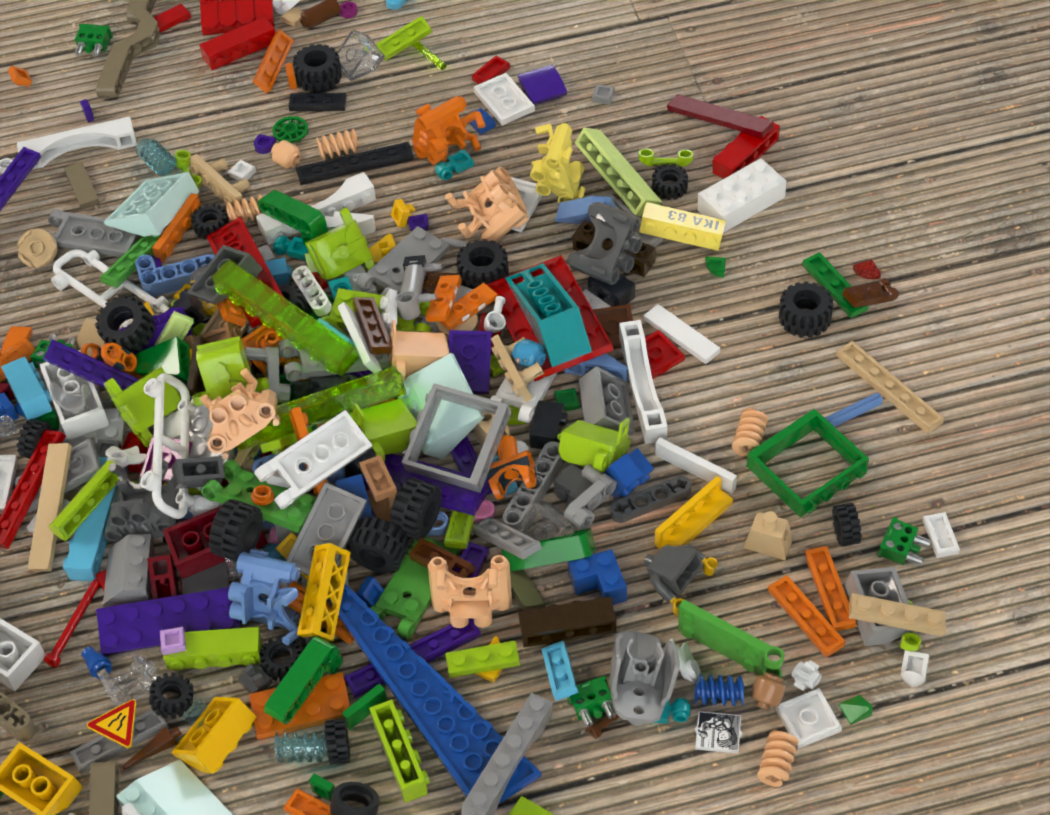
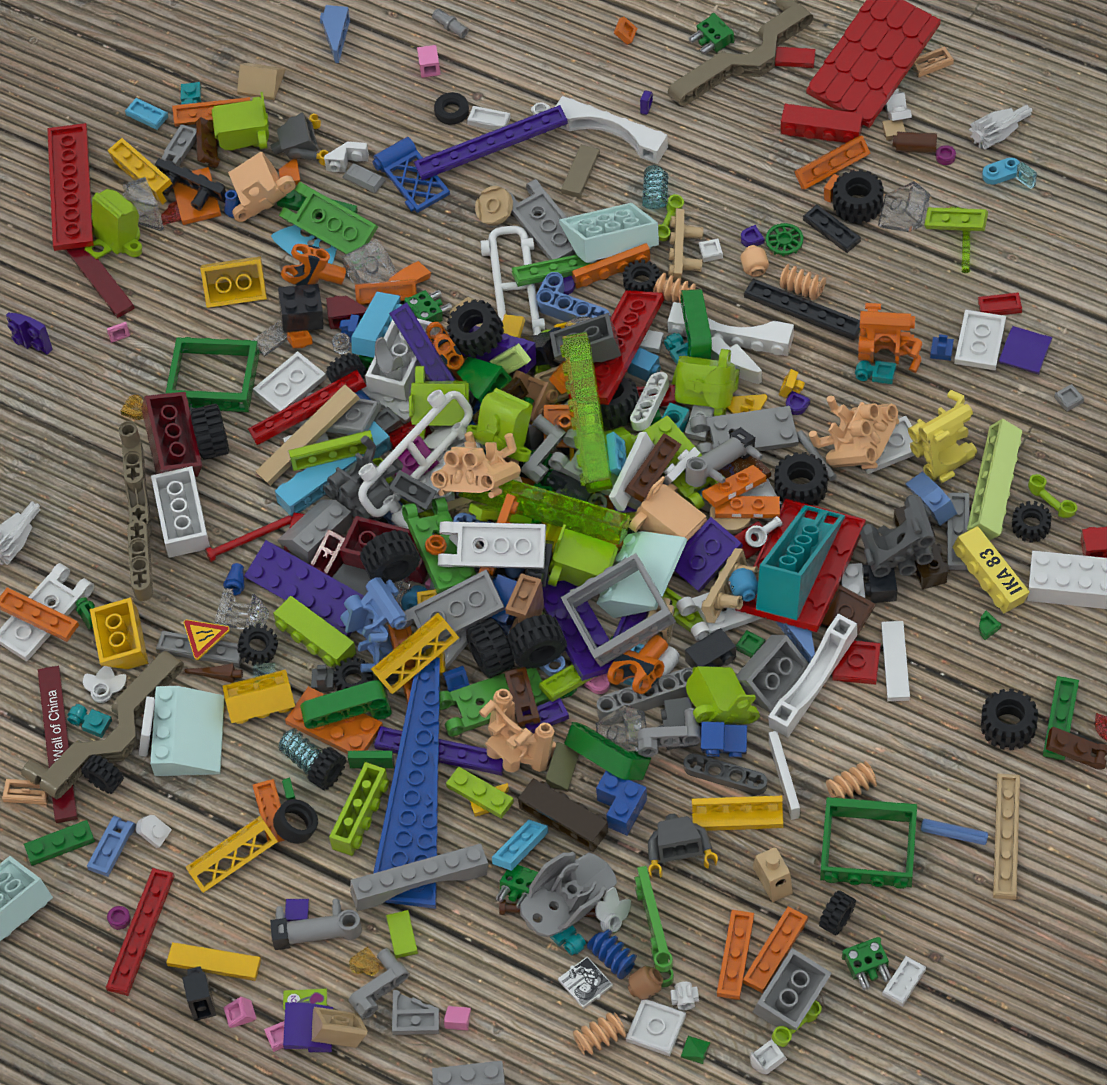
camera: 45 degrees right, 5 degrees up
(126, 456) = (386, 434): white plate -> none
(173, 640) = (289, 605): lavender tile -> none
(506, 538) = (583, 716): light grey tile -> none
(897, 614) = (788, 1007): tan plate -> none

